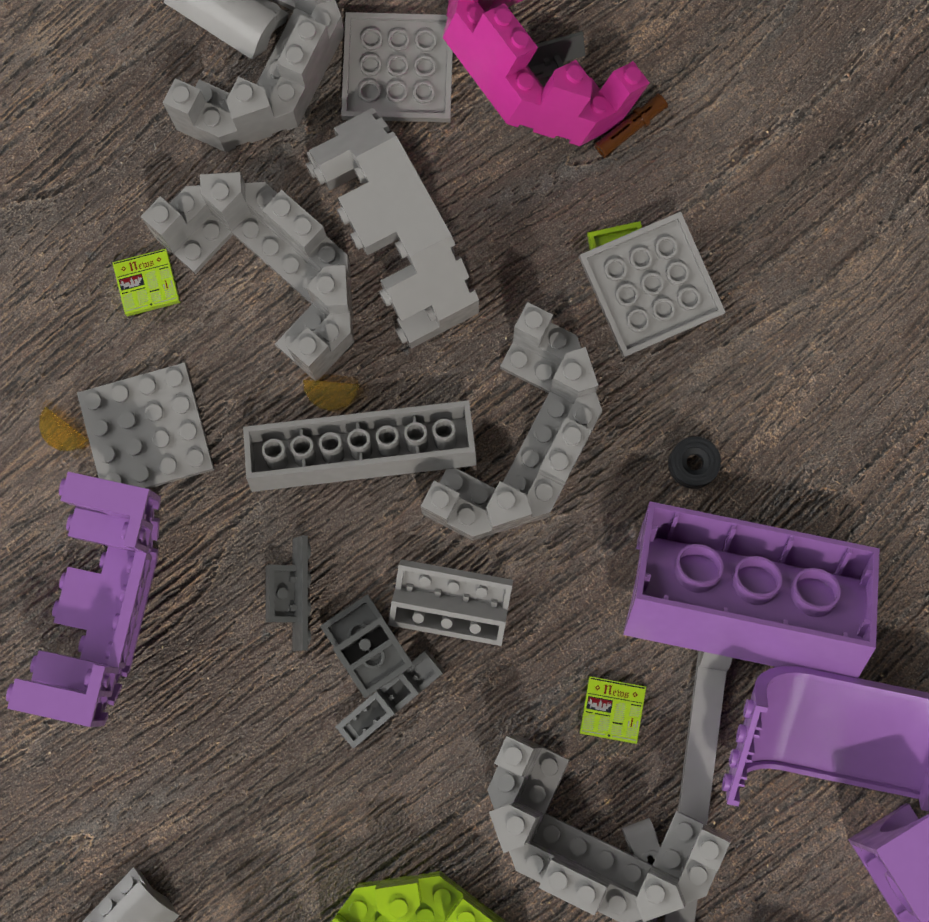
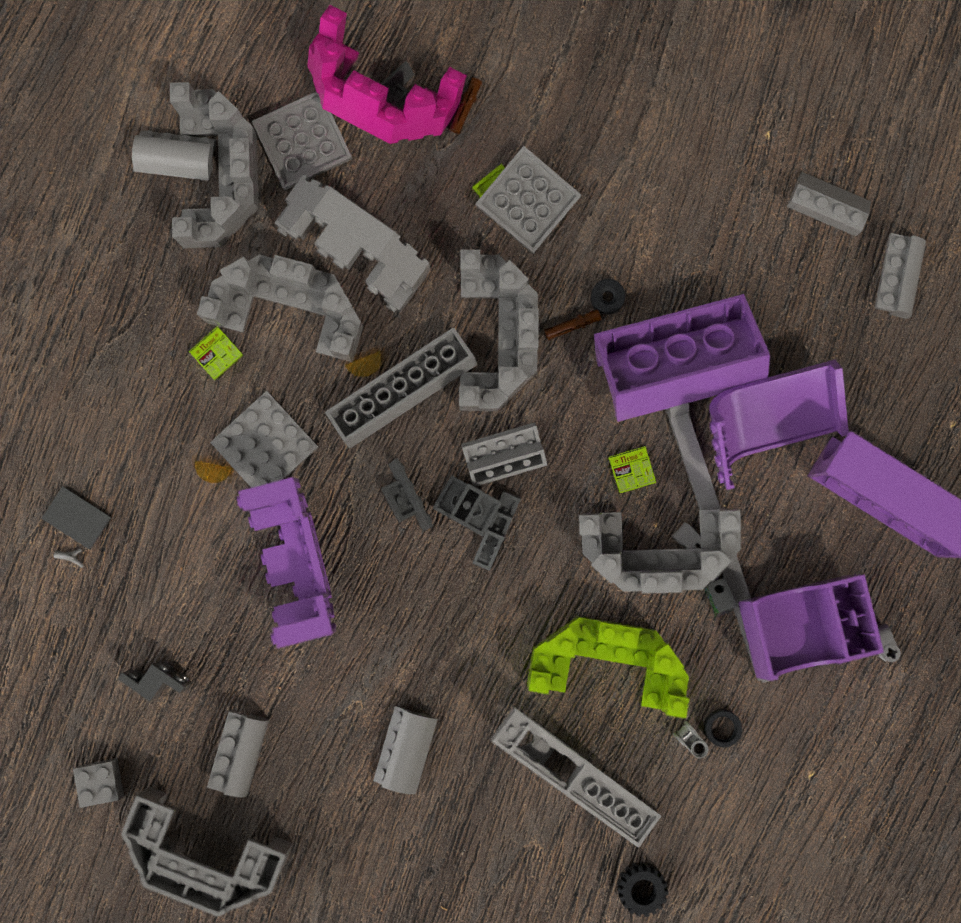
camera: 30 degrees left, 5 degrees up
(634, 476) = (580, 321): none -> reddish brown pin

